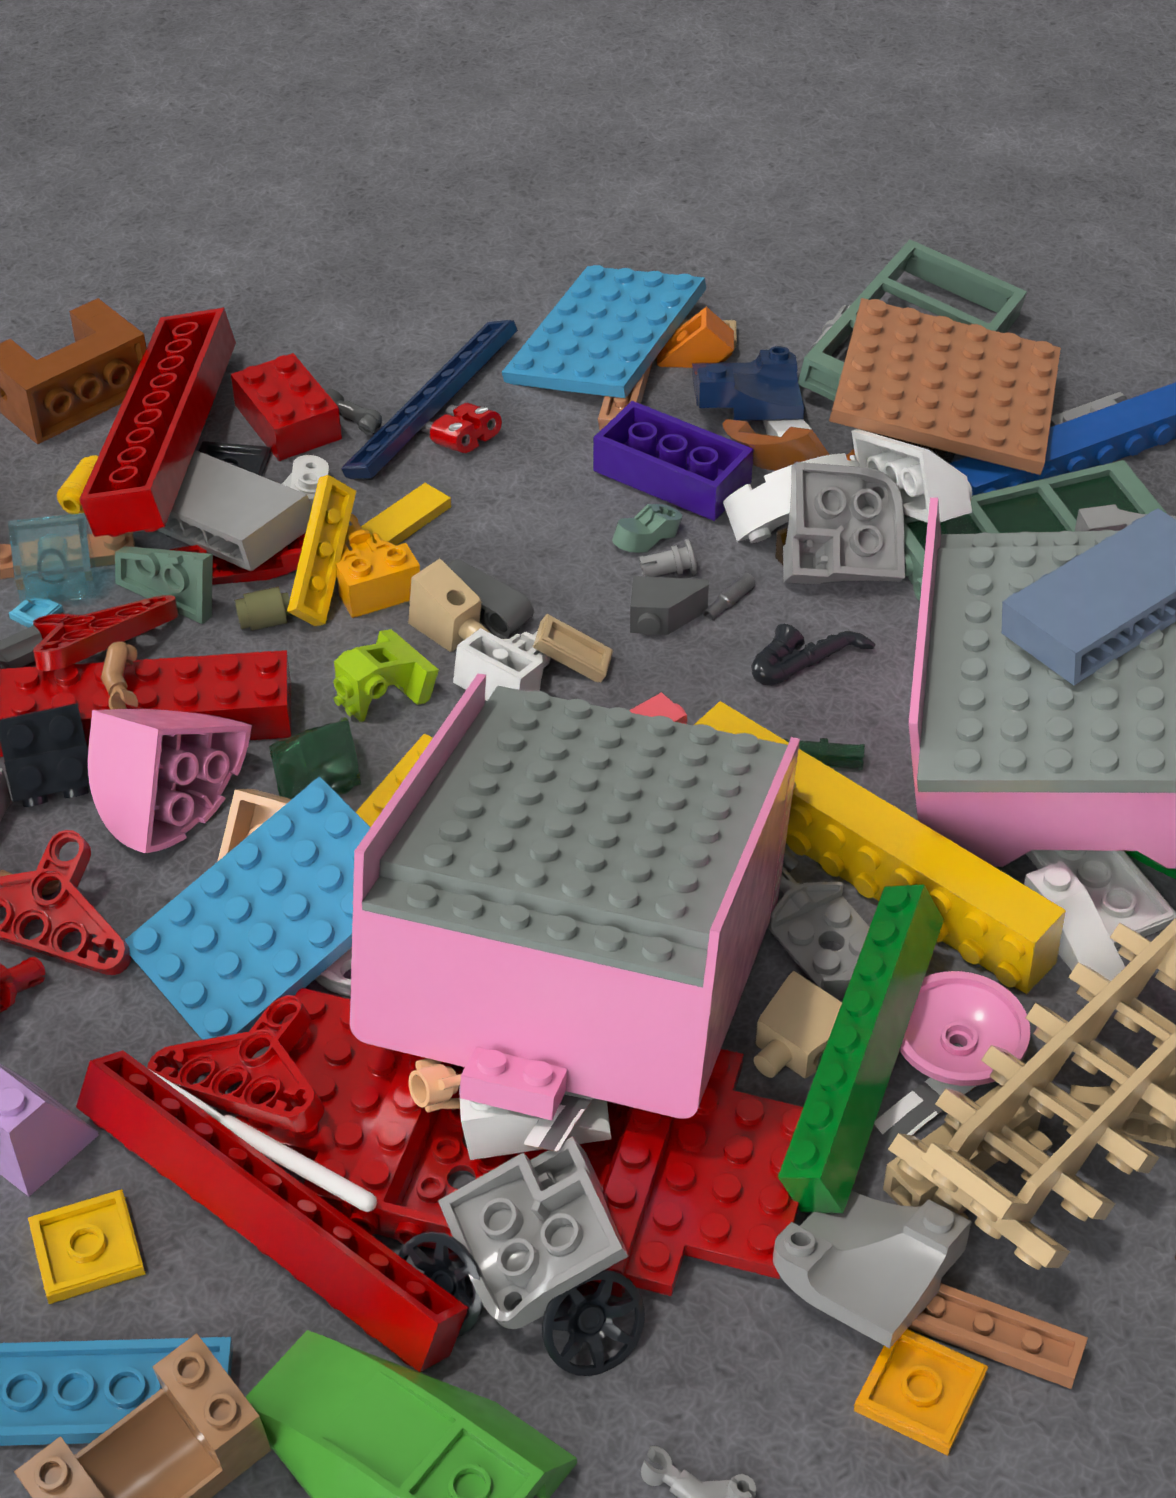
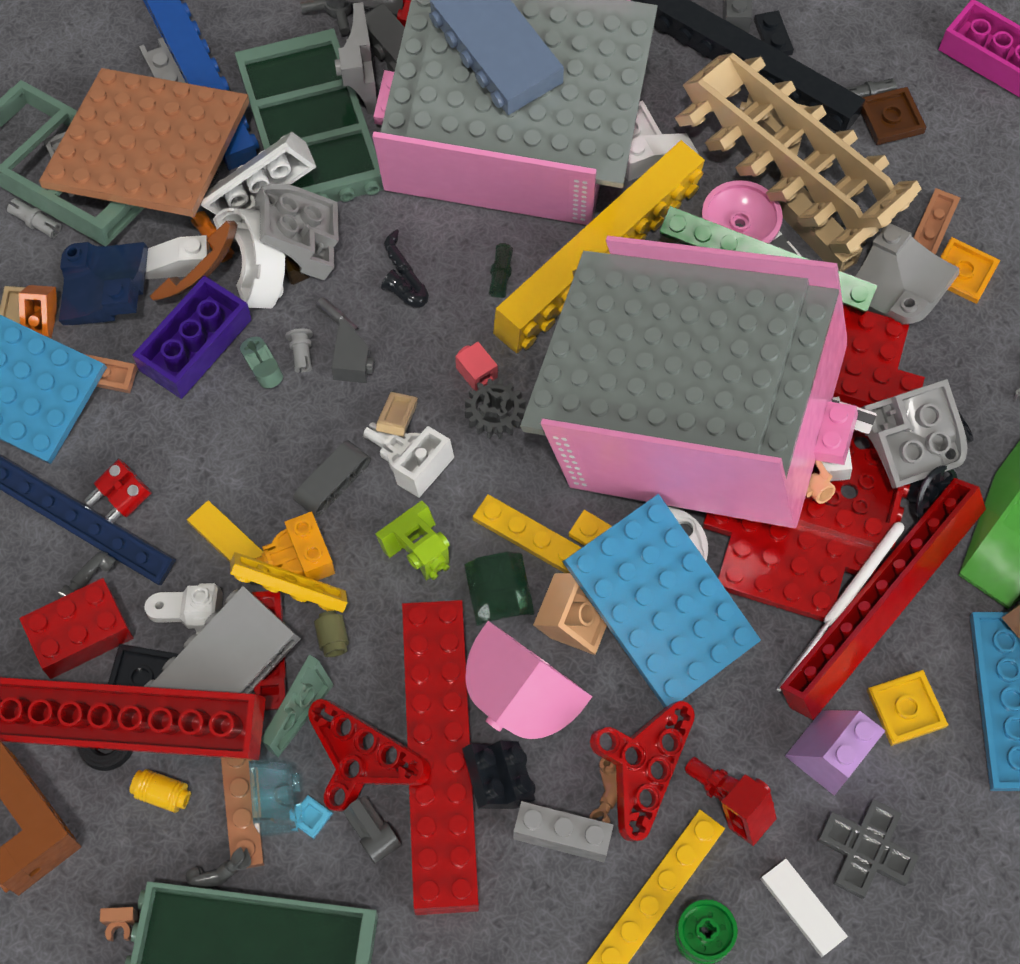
camera: 90 degrees left, 20 degrees up
(117, 657) = (438, 722): medium nougat arm -> none
(231, 1061) = (802, 594): red beam -> none
(443, 606) = (353, 496): tan torso -> none

